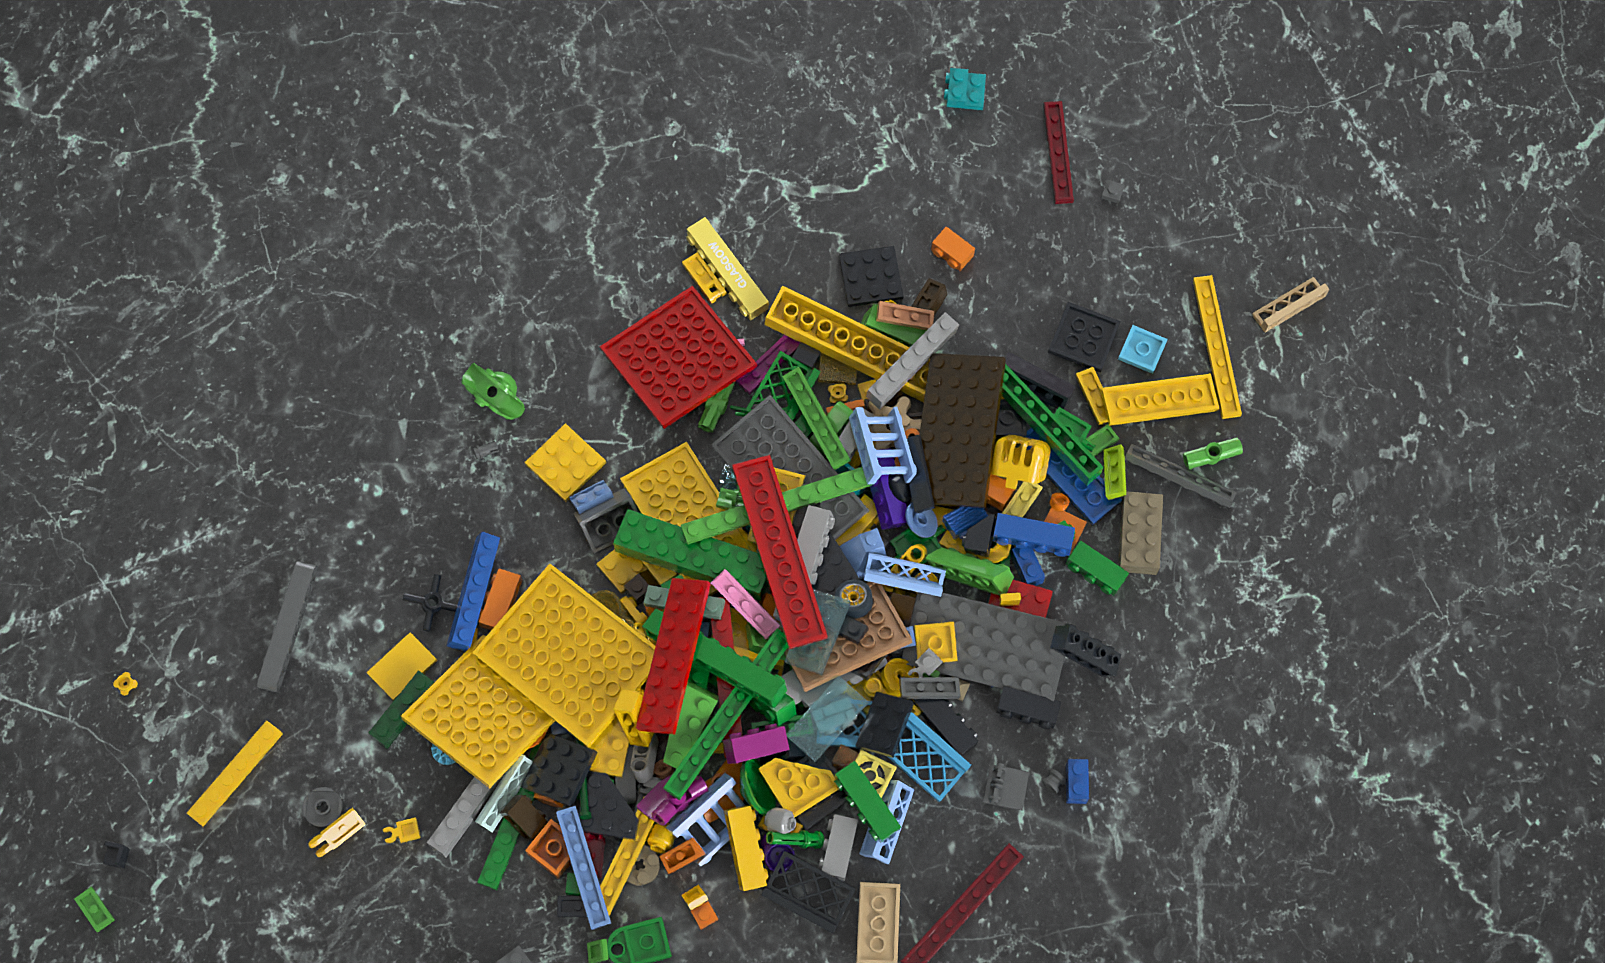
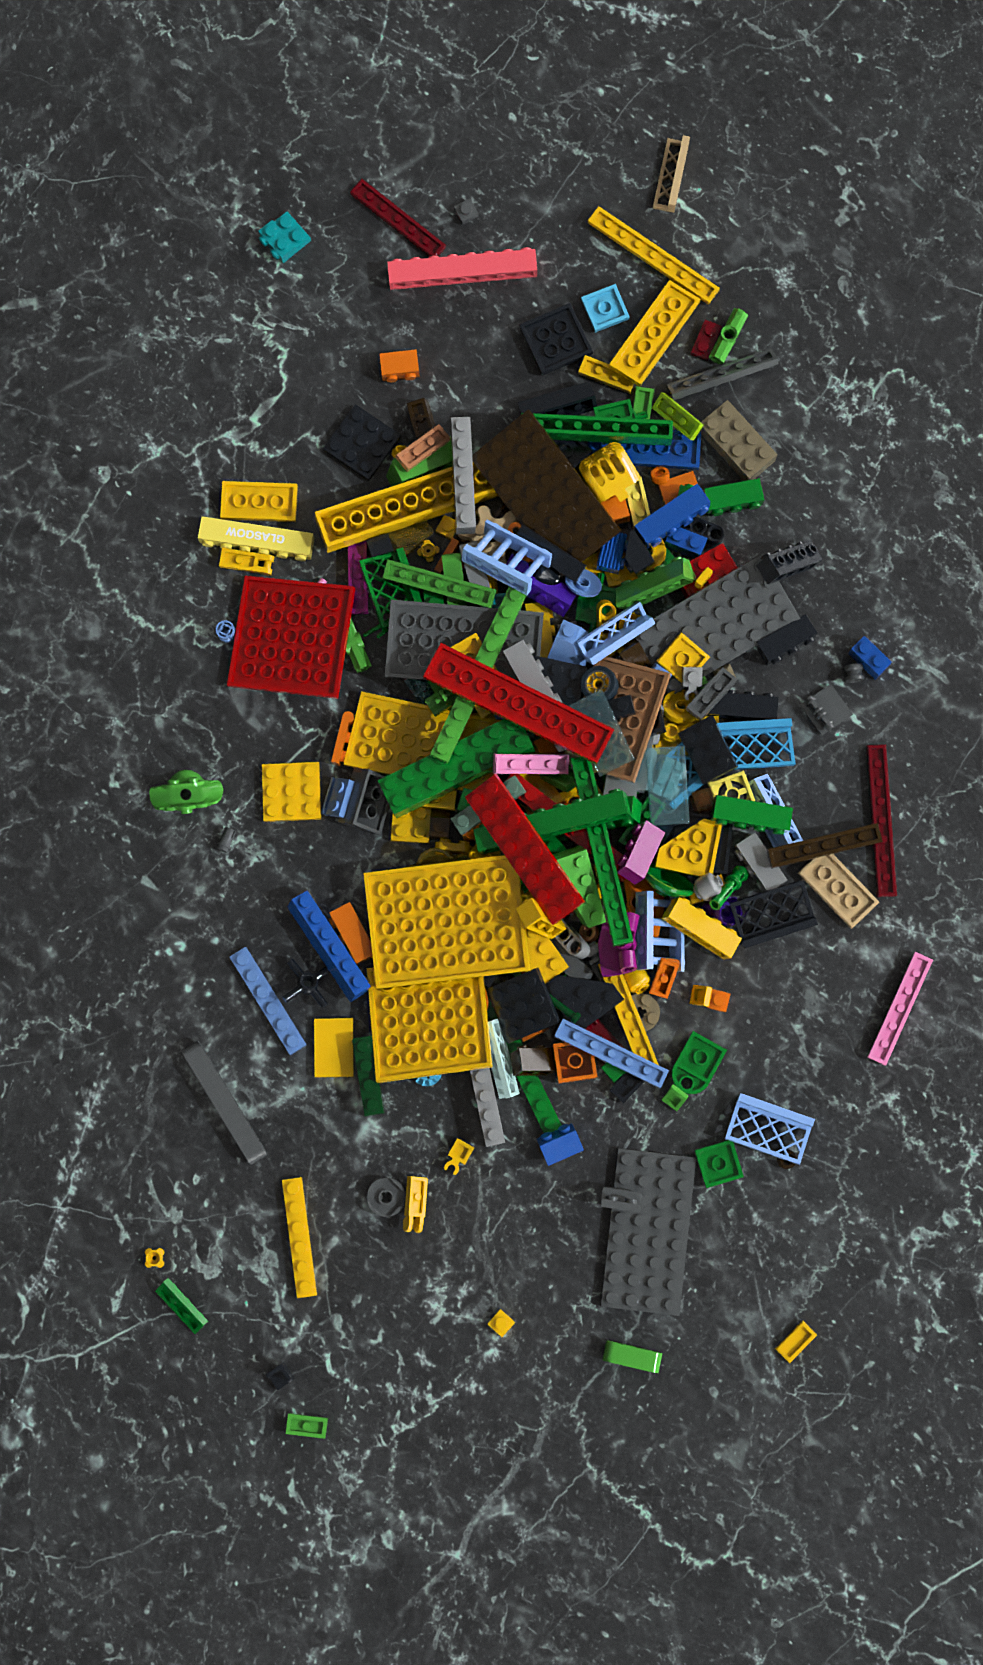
camera: 40 degrees left, 10 degrees up
(105, 735) = (181, 1306): none -> green plate
(393, 588) = (268, 1001): none -> medium blue plate
(480, 896) = (559, 1144): none -> blue brick
(638, 460) = (342, 738): none -> orange plate
(639, 313) = (227, 635): none -> medium blue wheel
(756, 246) = (259, 501): none -> yellow plate
(898, 881) = (824, 845): none -> dark brown plate
(1050, 573) = (707, 529): none -> black beam
(1068, 226) = (462, 268): none -> coral brick
(1193, 440) = (706, 340): none -> dark red plate

